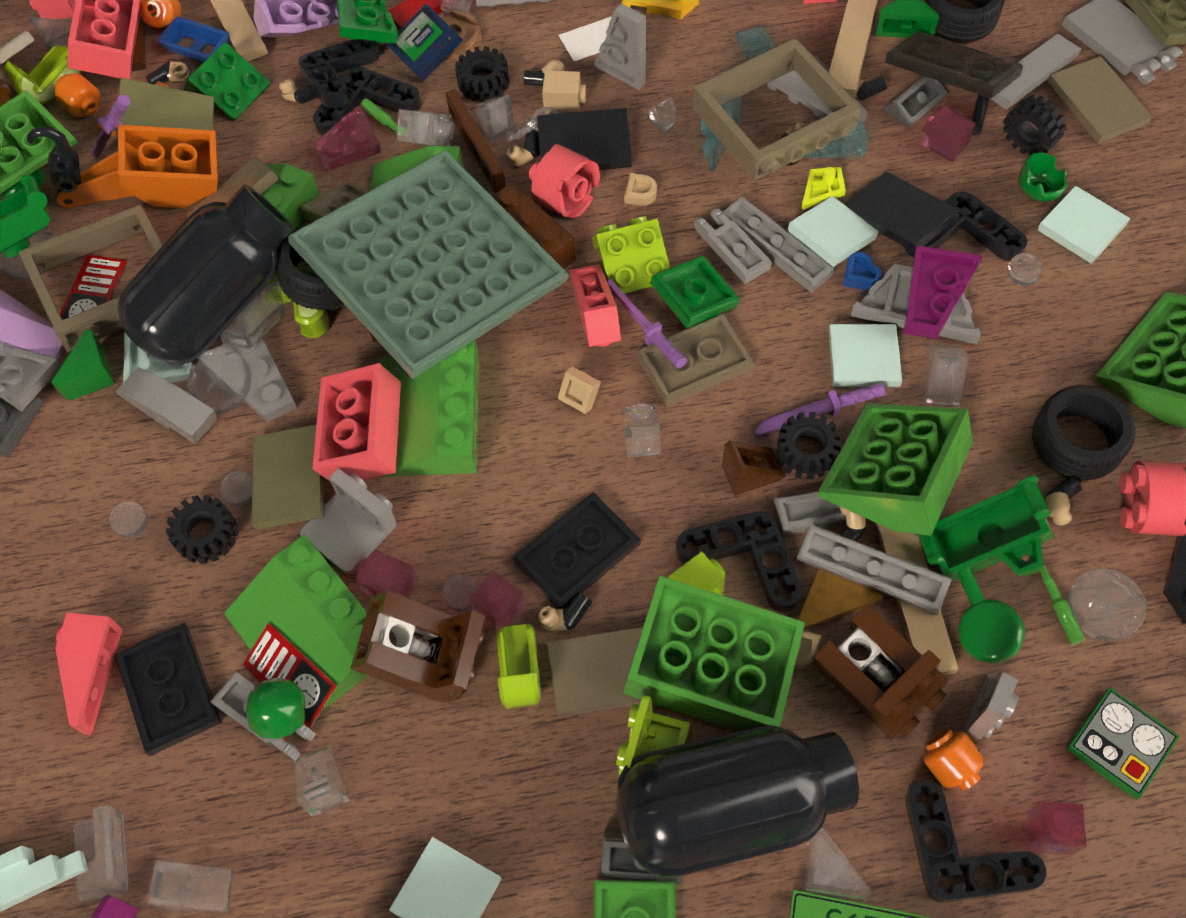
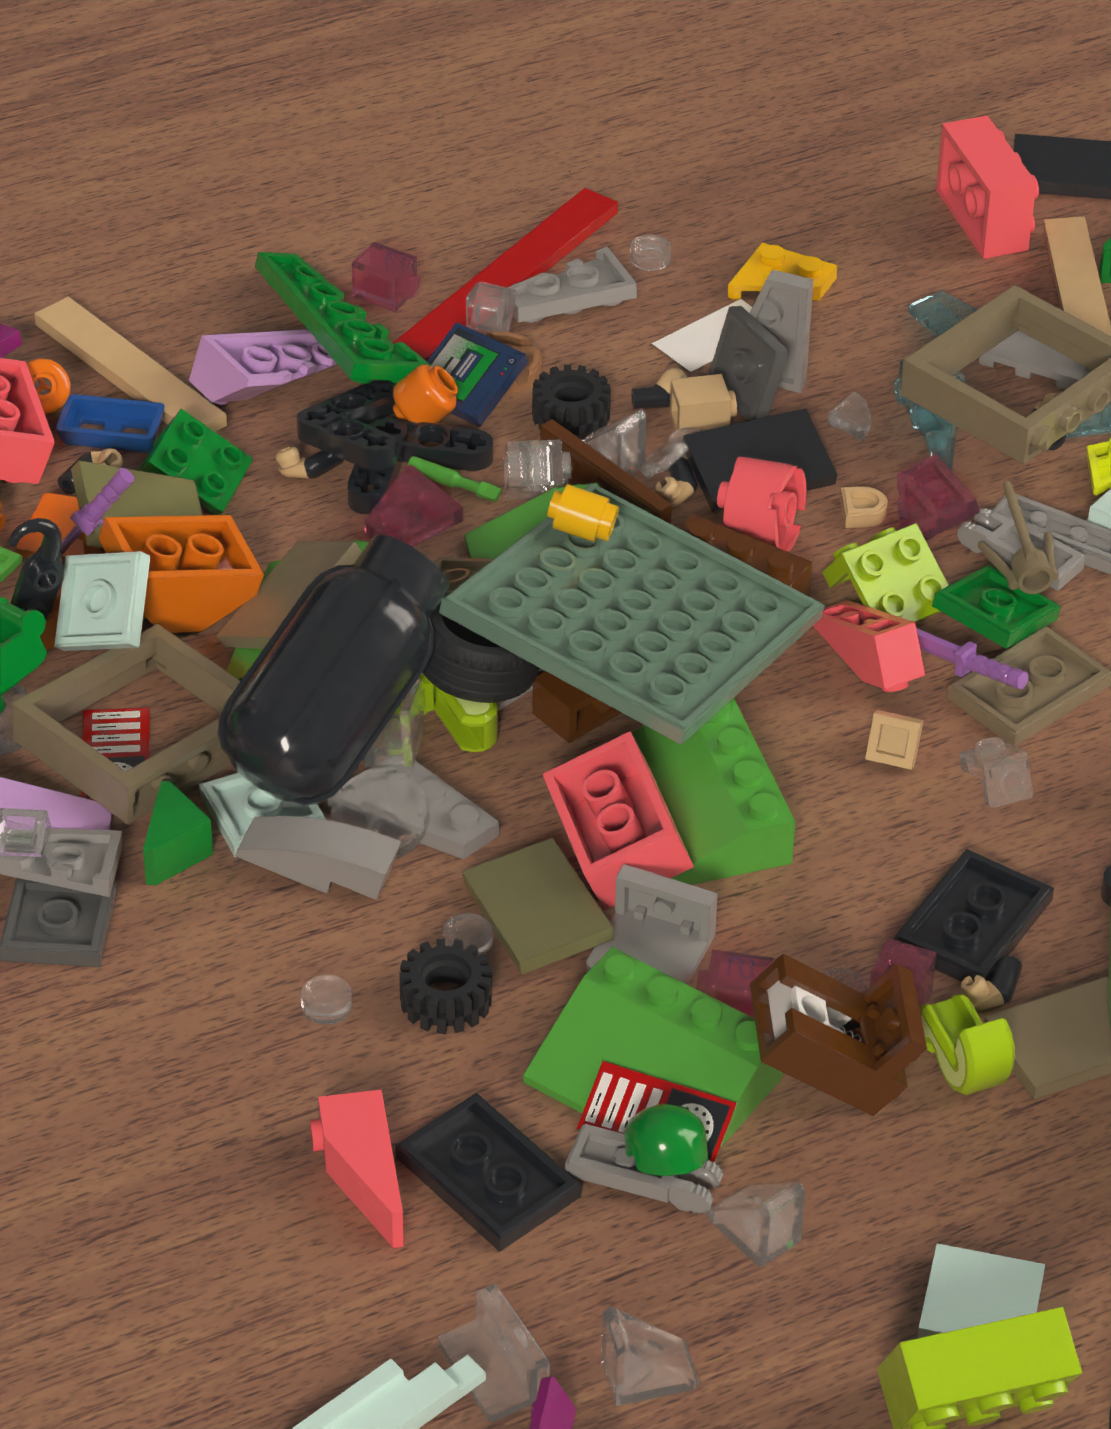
camera: 20 degrees left, 20 degrees down
(99, 186) = (102, 601): none -> light aqua tile
(387, 55) = (425, 395): none -> orange head
(416, 180) = (583, 513): none -> yellow brick
(599, 67) = (749, 362): none -> dark grey tile
(684, 195) = (933, 497): none -> clear pink wing
(725, 269) = (1031, 568): none -> dark tan plant

